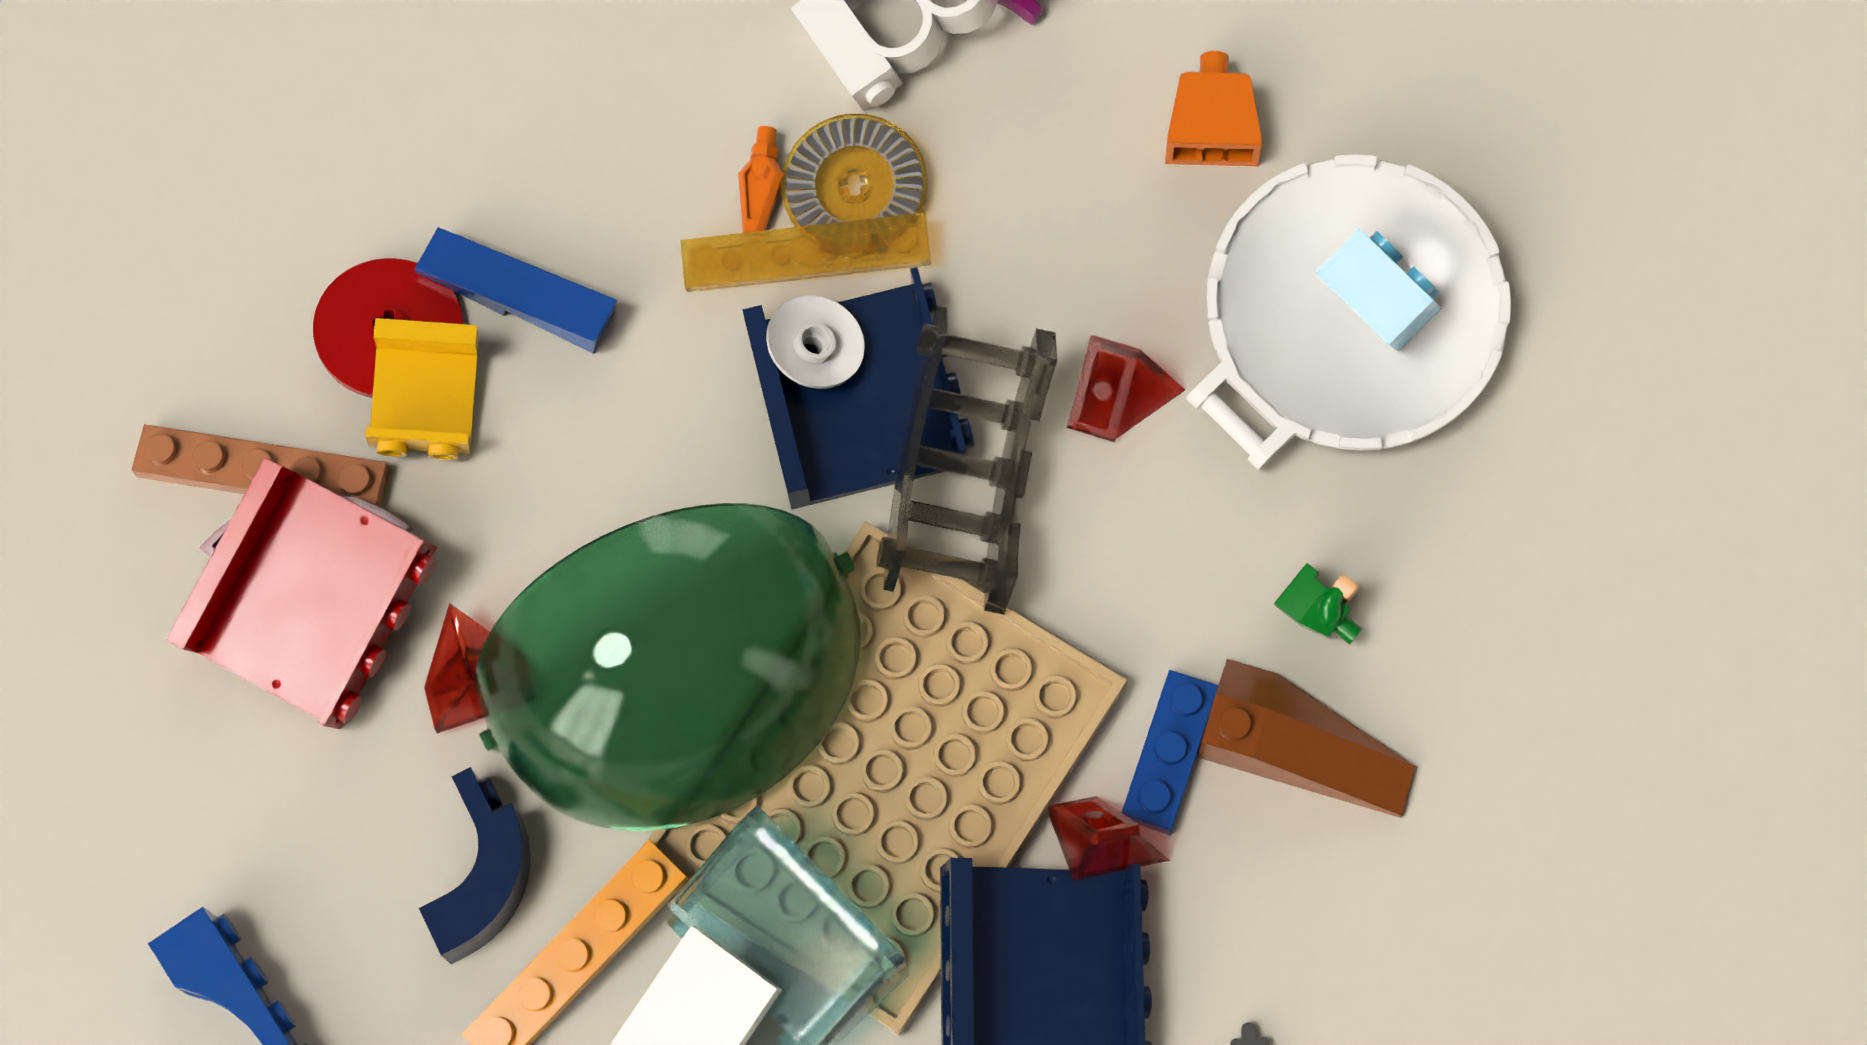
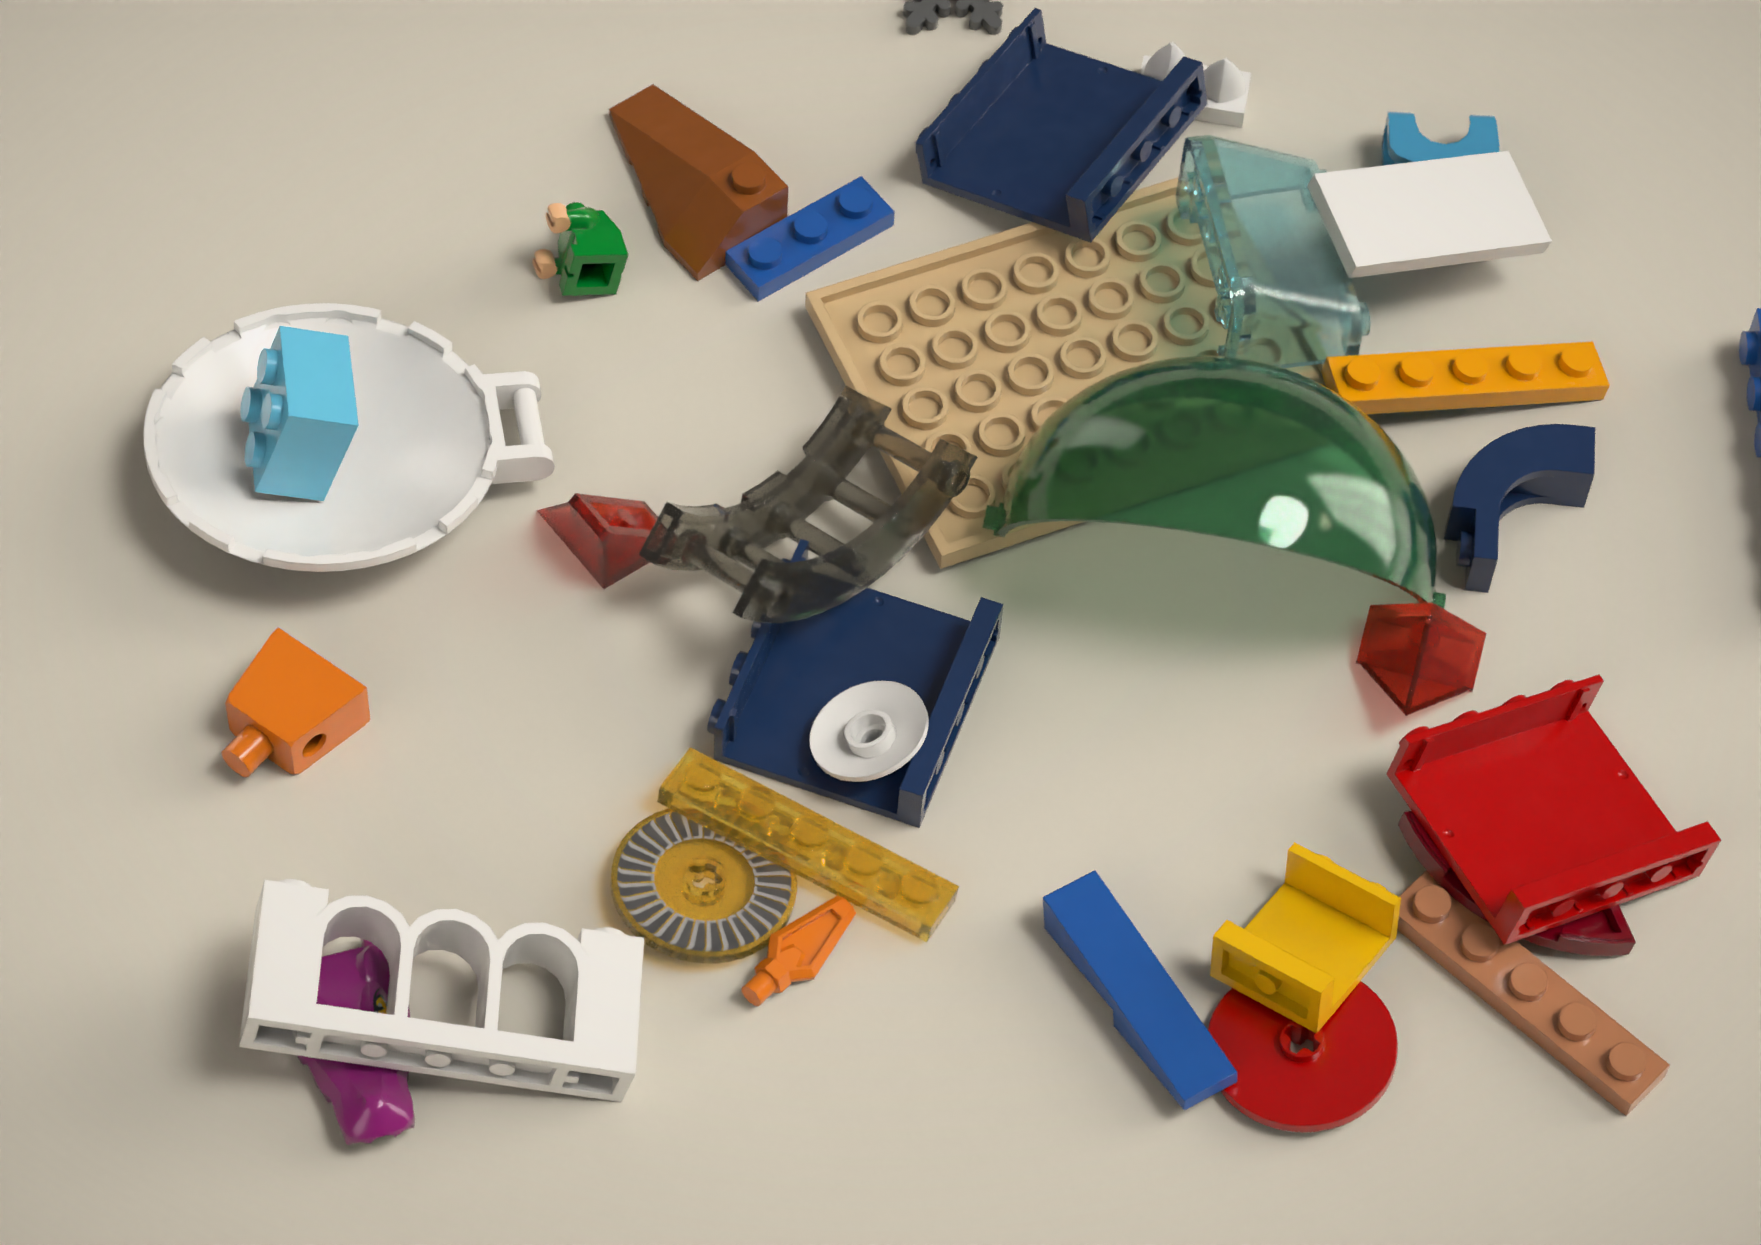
camera: 155 degrees left, 15 degrees down
(1099, 838) = (929, 191): clear red slope -> none

